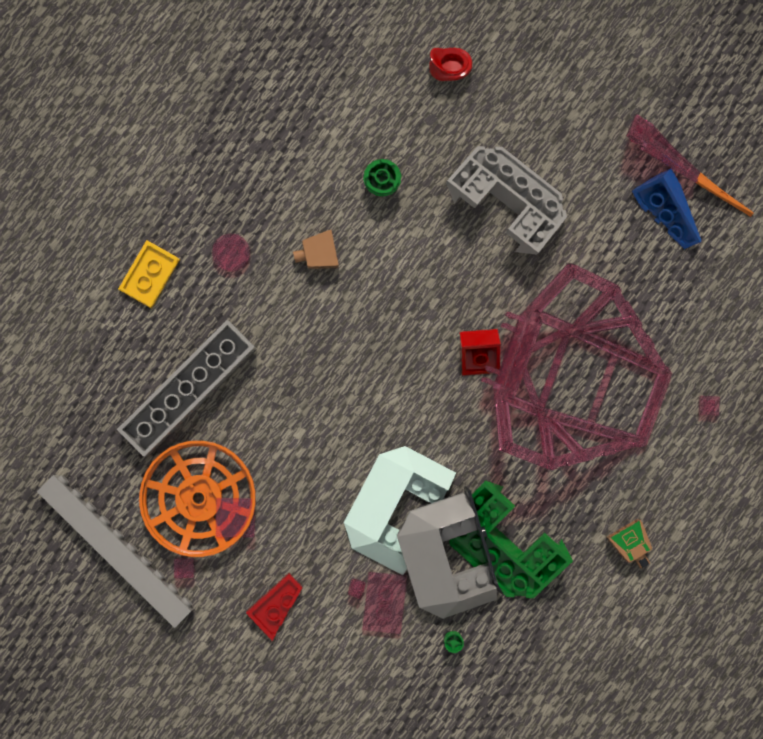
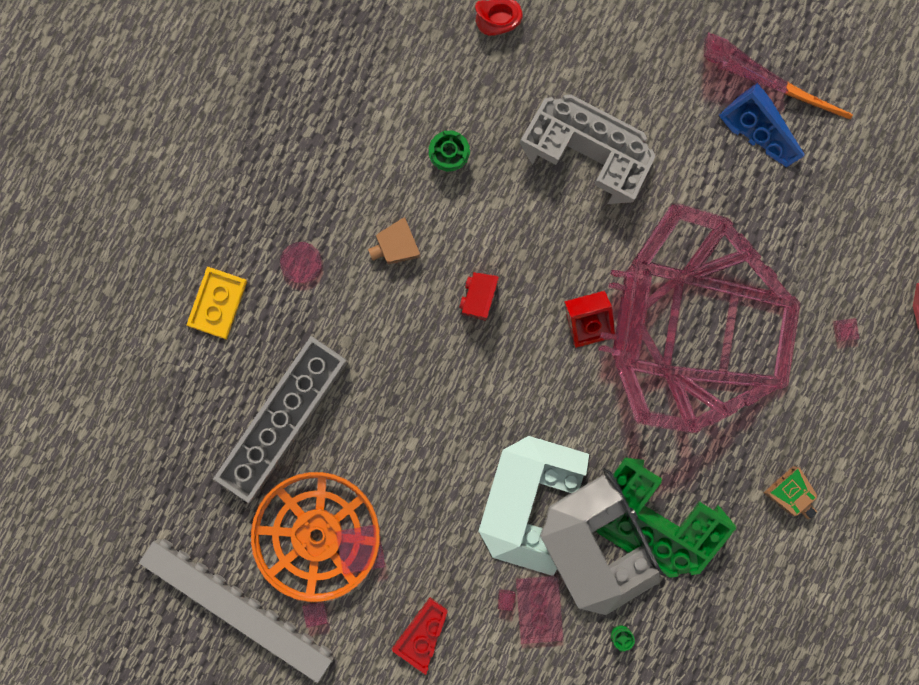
camera: 15 degrees left, 0 degrees up
(384, 312) = (479, 295): none -> red slope

